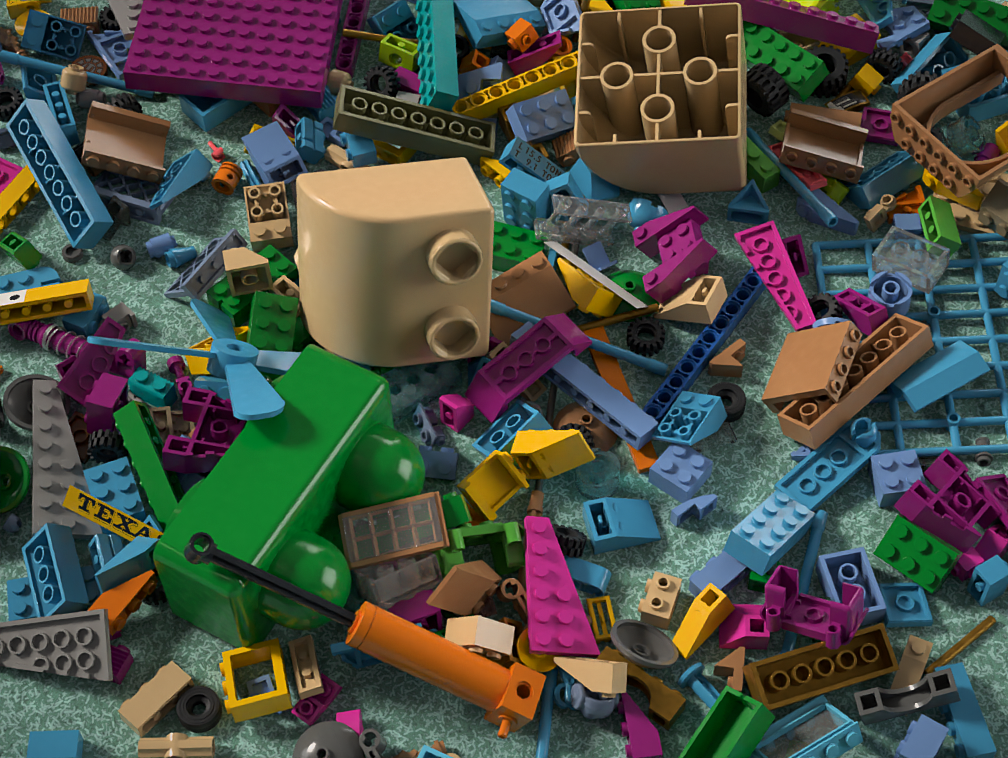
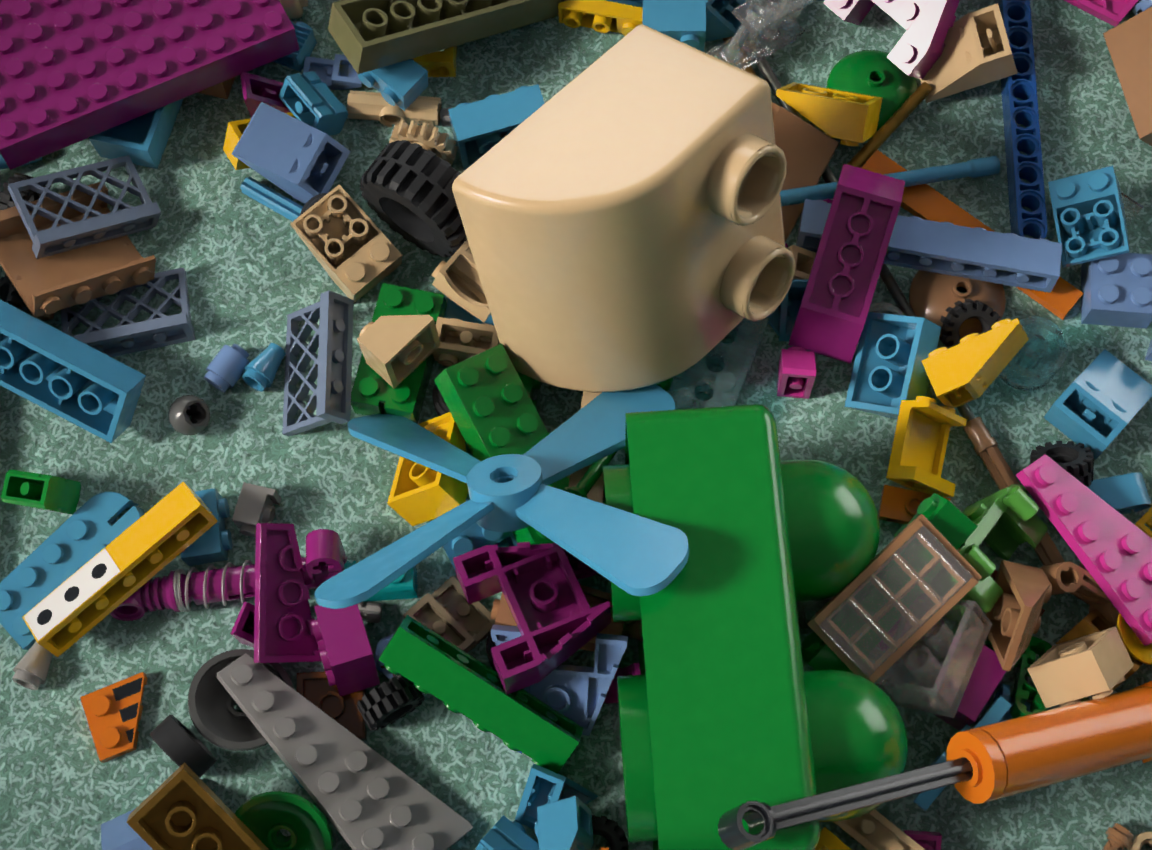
camera: 30 degrees left, 15 degrees up
(72, 254) = (107, 452): dark grey tile -> none
(107, 515) = (504, 803): yellow sticker -> none
(116, 487) = (453, 763): dark azure brick -> none
(120, 215) = (137, 355): clear smoke slope -> none
(148, 139) = (91, 230): none -> sand blue fence
(176, 366) = (383, 526): magenta bar -> none
(181, 176) = (182, 255): dark azure wedge -> none
(218, 154) = (200, 191): coral hand -> none
(228, 175) = (242, 215): orange piece -> none
(425, 420) = (788, 420): sand blue hinge -> none
(439, 464) = (826, 445): medium blue bracket -> none
(596, 274) = (837, 87): white sticker -> none
(597, 256) = (804, 64): medium blue bracket -> none
(645, 326) = (946, 120): black tyre -> none
(728, 361) = (1060, 112): medium nougat slope -> none
(735, 394) = (1100, 149): black tyre -> none

